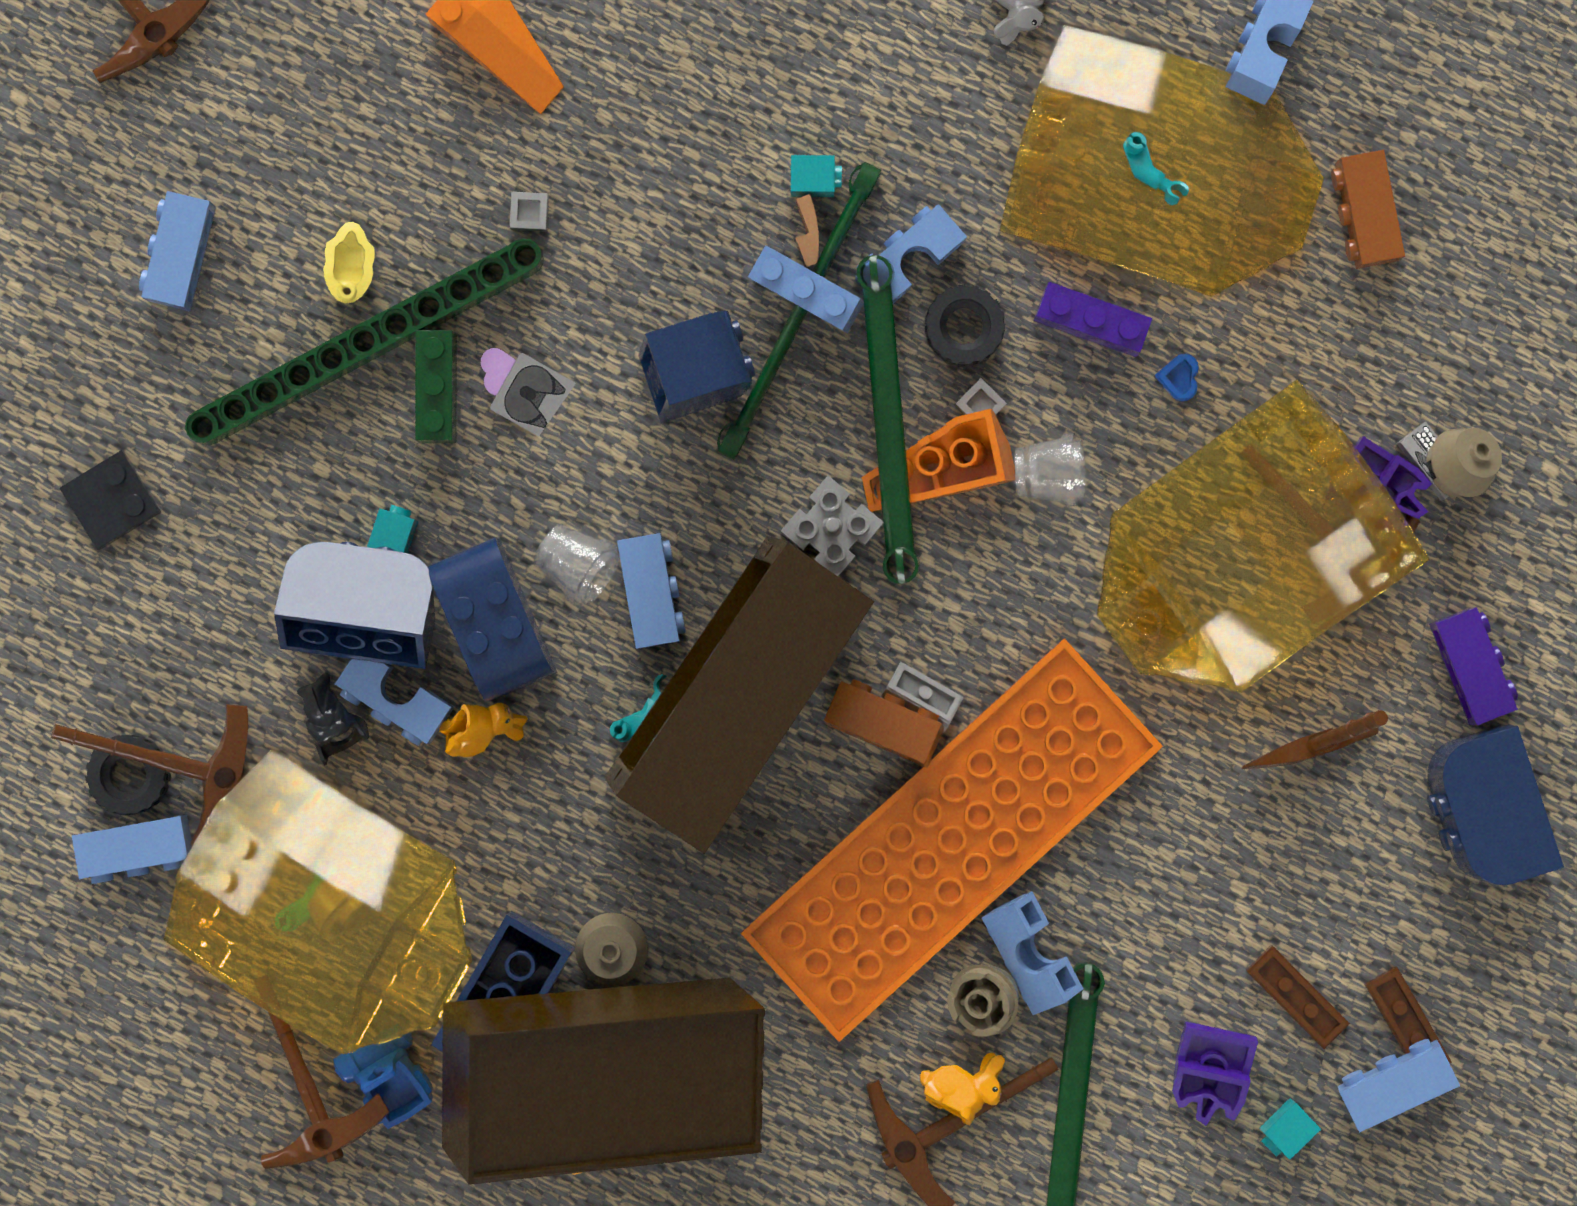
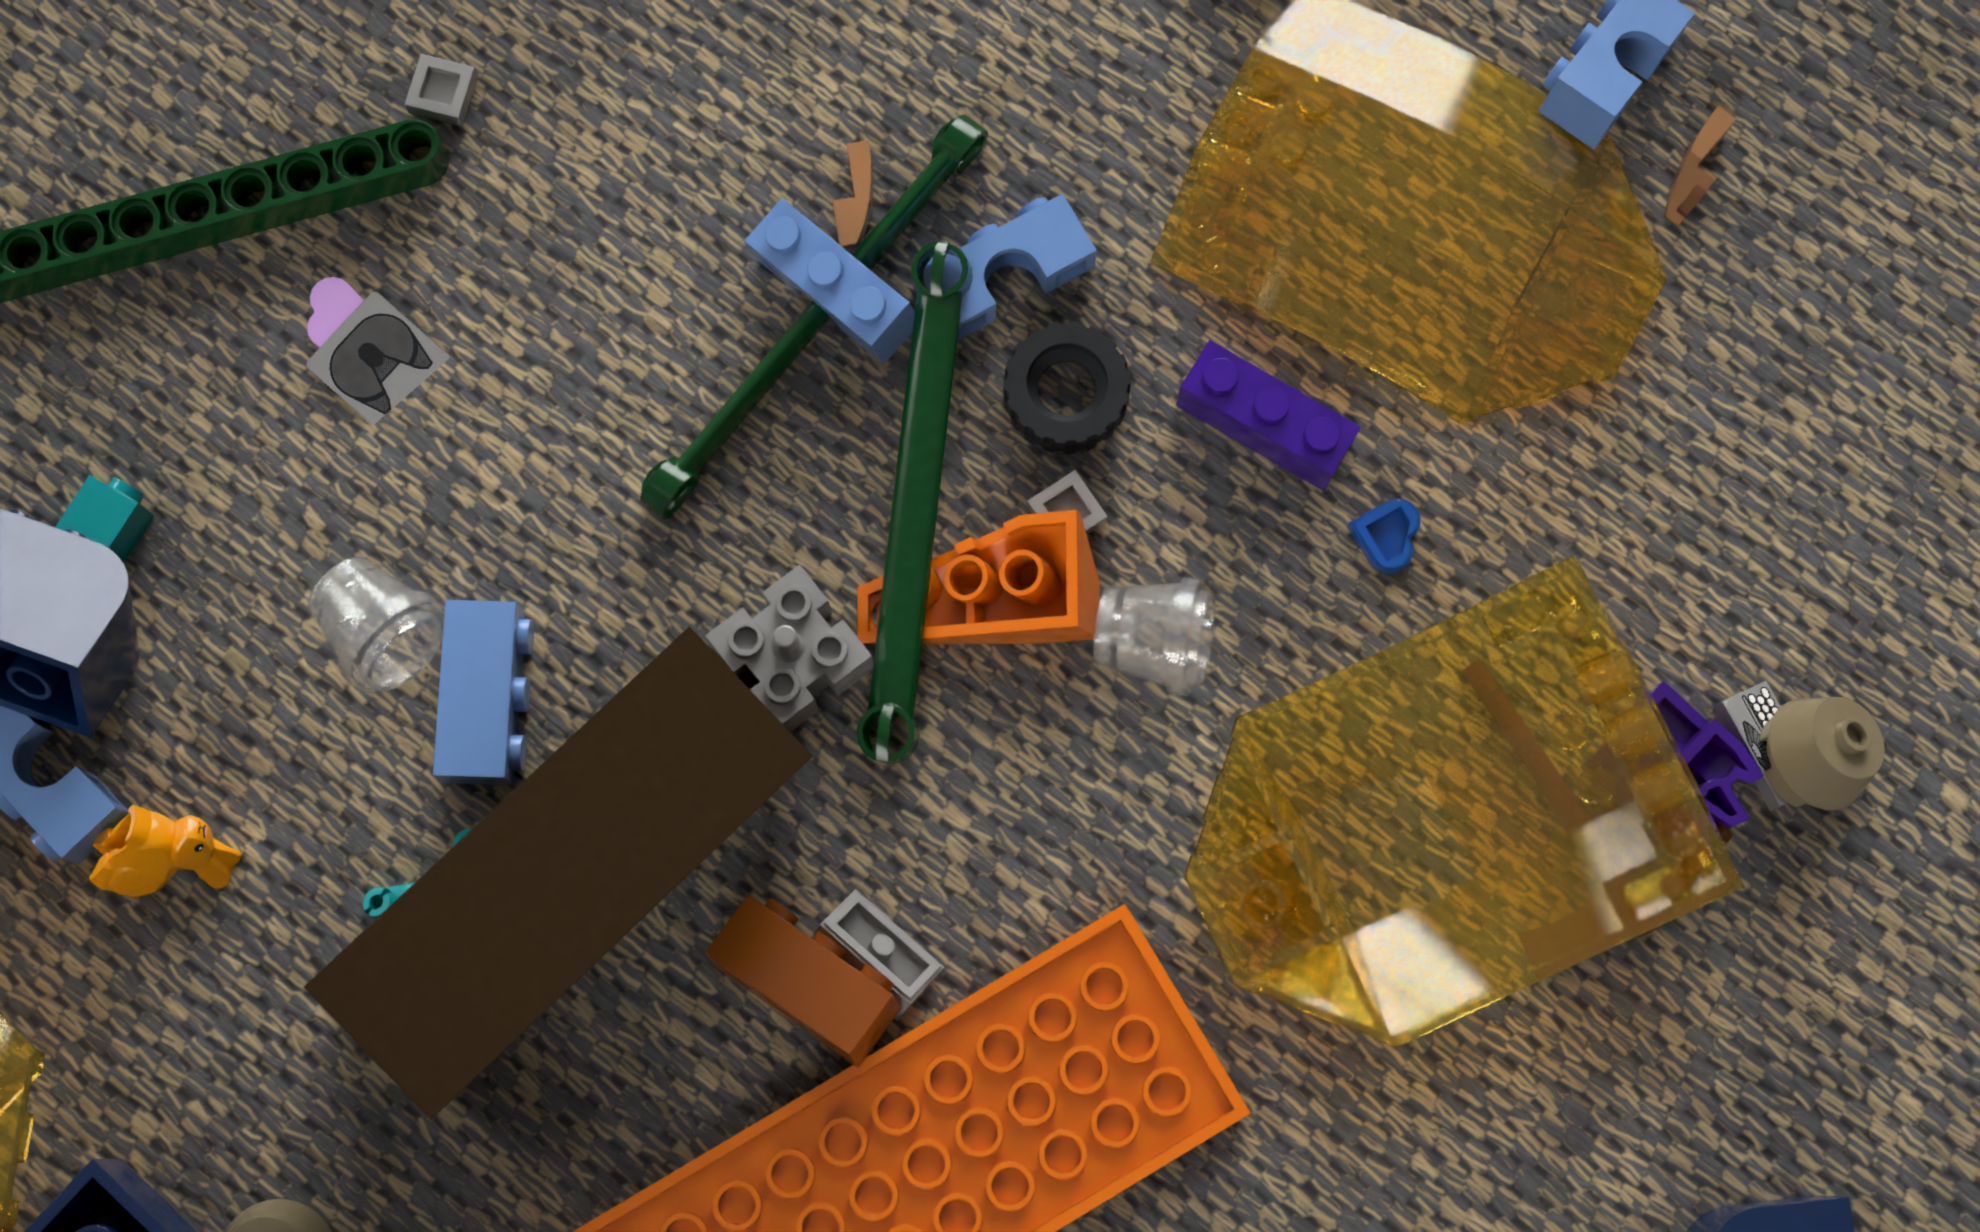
camera: 15 degrees right, 10 degrees down
(348, 263) = (148, 109): light yellow arm -> none
(435, 386) = (229, 314): dark green brick -> none
(491, 620) = (213, 684): dark blue brick -> none
(695, 365) = (627, 344): dark blue brick -> none
(814, 175) = (885, 117): teal brick -> none
(1144, 170) = (1389, 194): teal arm -> none
(1321, 742) = (1562, 1152): reddish brown piece -> none
(1327, 109) = (1692, 179): none -> medium nougat slope
(1368, 209) = (1728, 338): dark orange brick -> none
(1474, 666) = (1786, 1088): dark purple brick -> none

